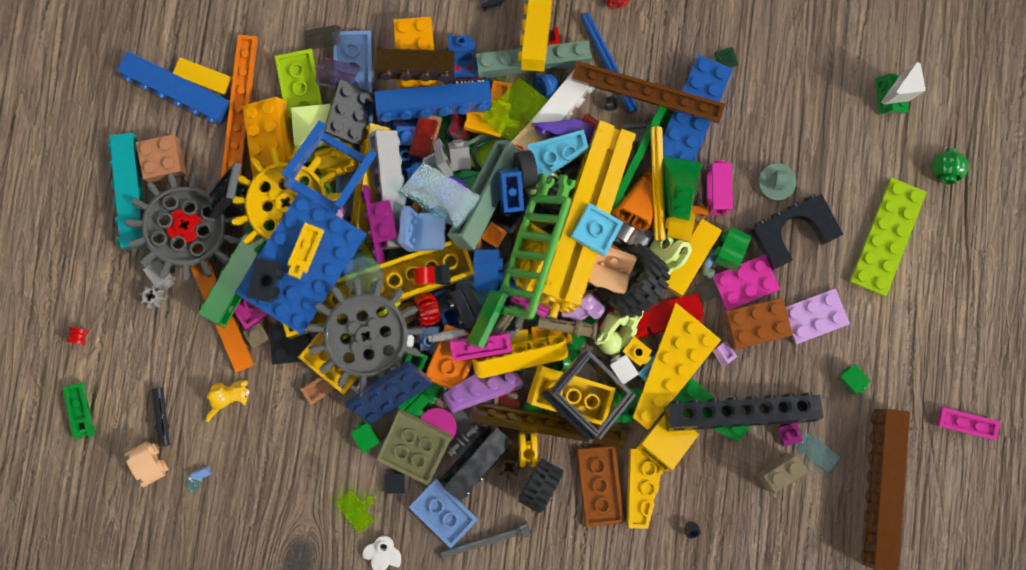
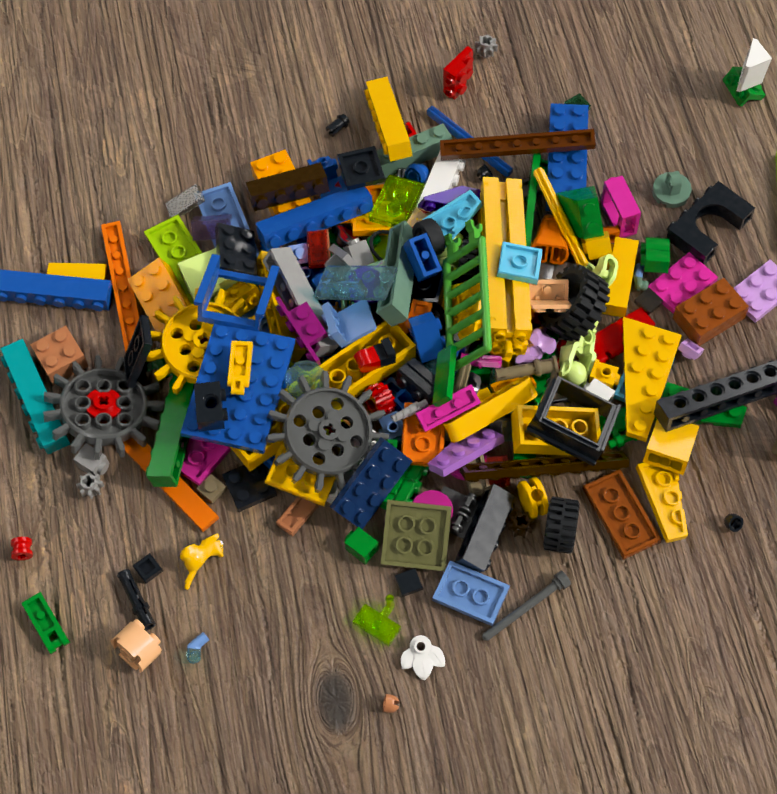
camera: 15 degrees left, 20 degrees down
(179, 390) = (147, 568): none -> black tile
(491, 67) = (361, 168): none -> black plate

